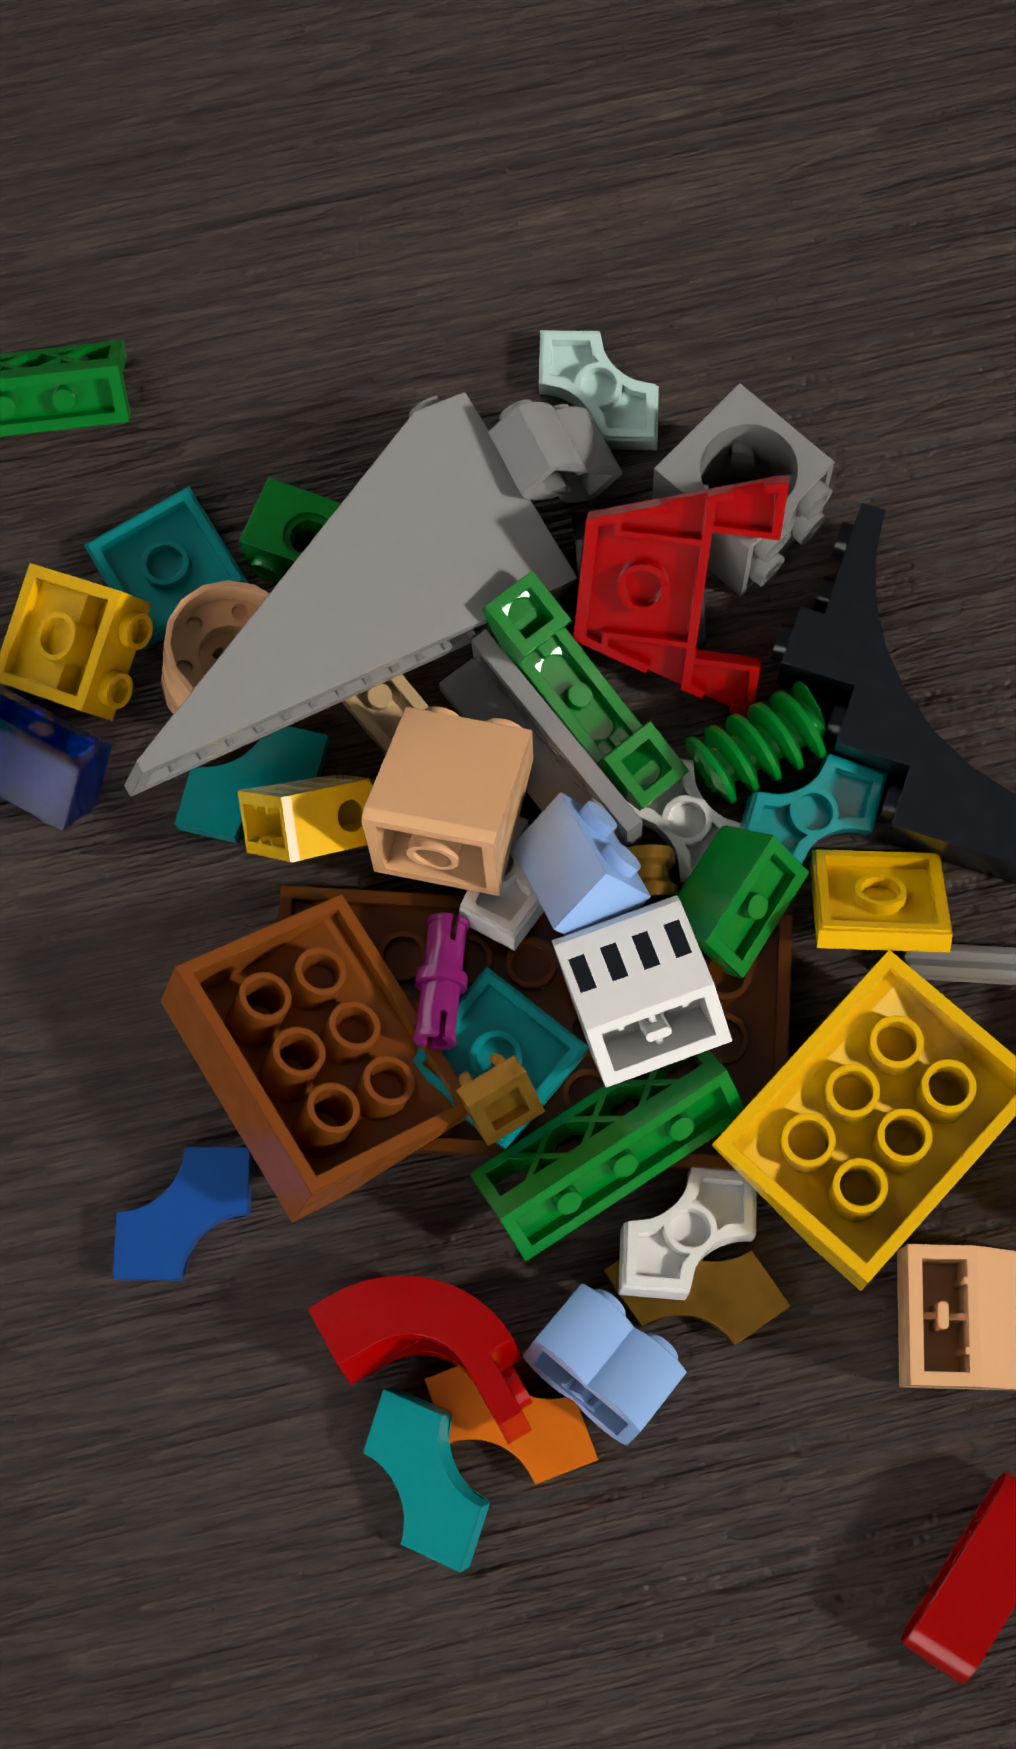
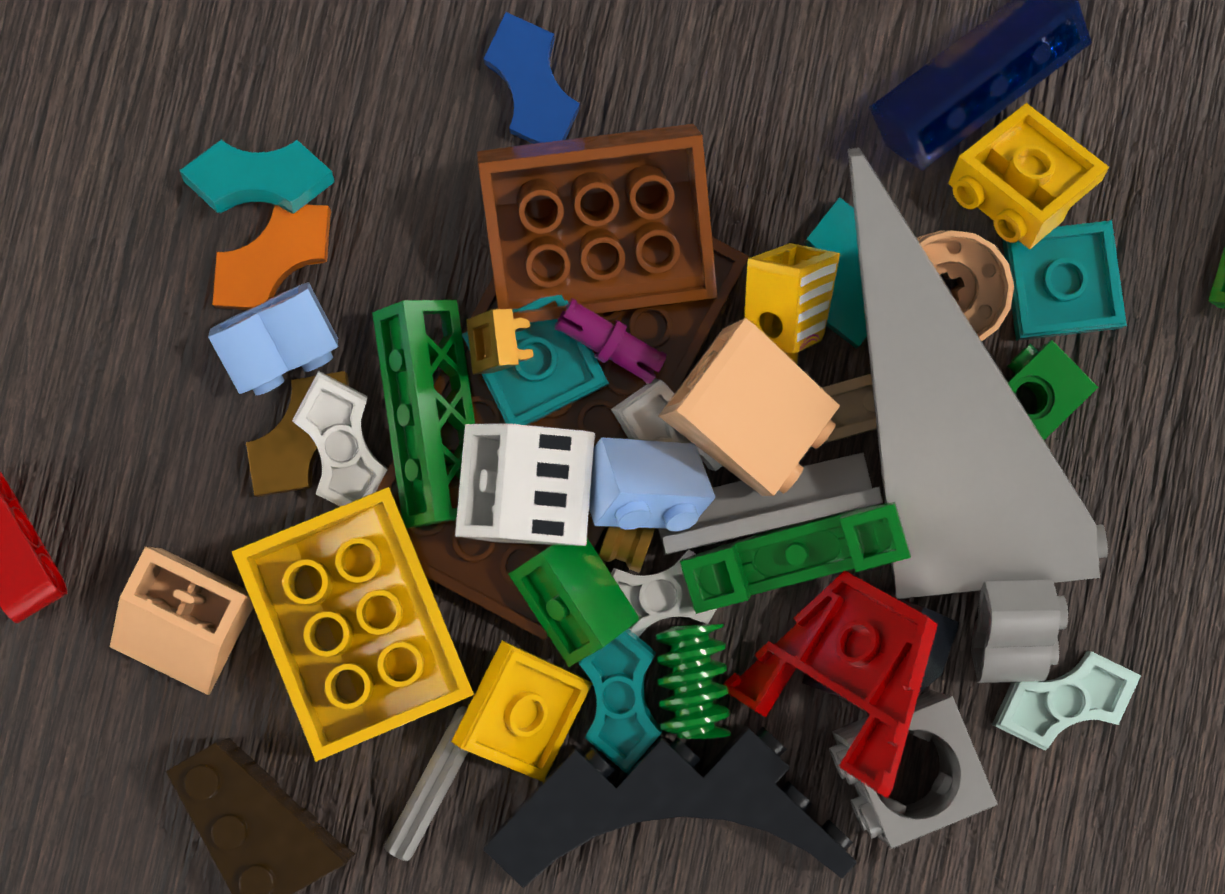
camera: 105 degrees right, 10 degrees up
(423, 1316) = (380, 196): red arch -> none

